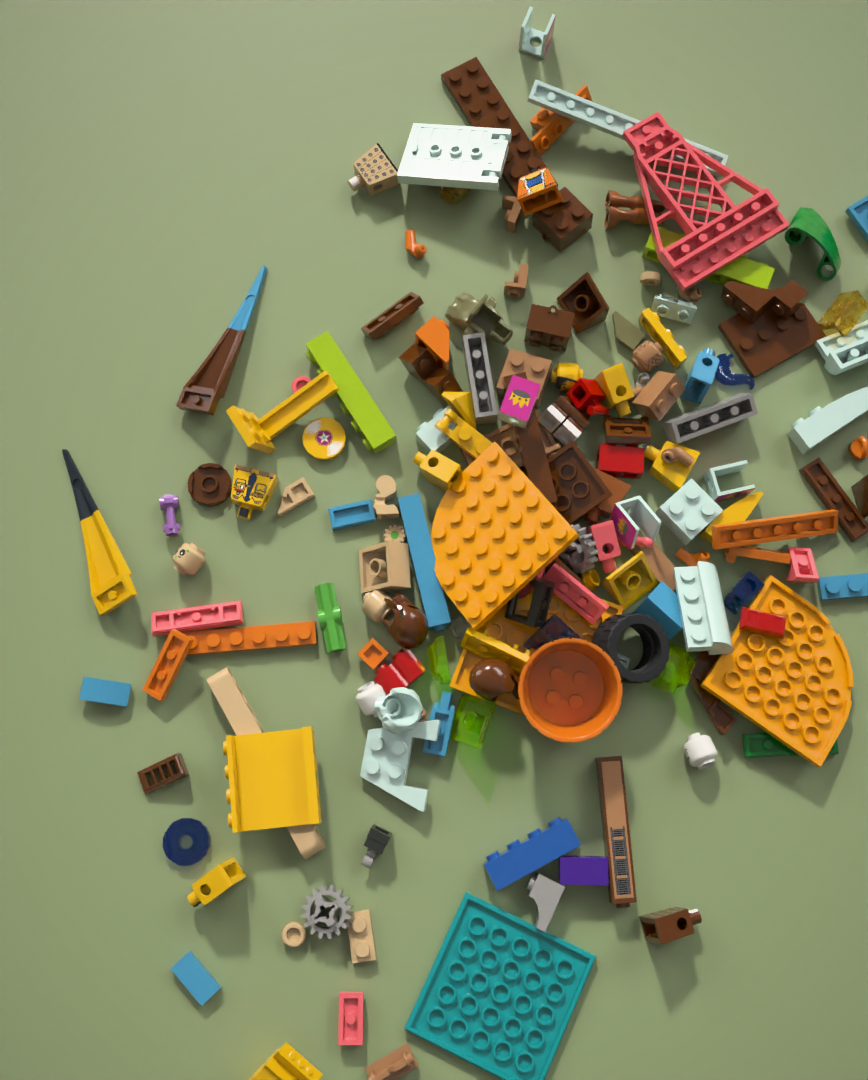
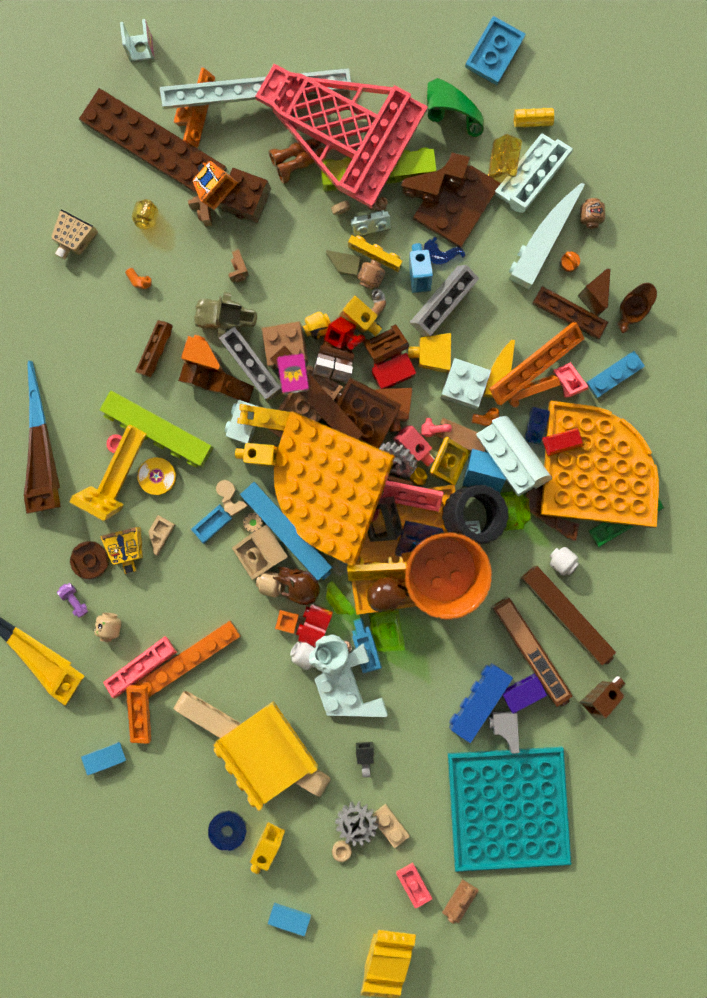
camera: 30 degrees left, 10 degrees up
(180, 766) = (192, 781): reddish brown slope -> none
(330, 617) = (239, 612): bright green piece -> none
(454, 156) = (130, 188): light aqua door -> none
(461, 404) = (249, 393): yellow slope -> none
(549, 327) = (282, 294): reddish brown brick -> none
(586, 303) = (298, 258): reddish brown slope -> none
(641, 514) = (431, 406): light aqua piece -> none
(659, 395) = (396, 303): medium nougat brick -> none
(676, 813) = (568, 615): none -> reddish brown brick
(677, 454) = (433, 345): medium nougat arm -> none
(710, 480) = (471, 351): light aqua piece -> none

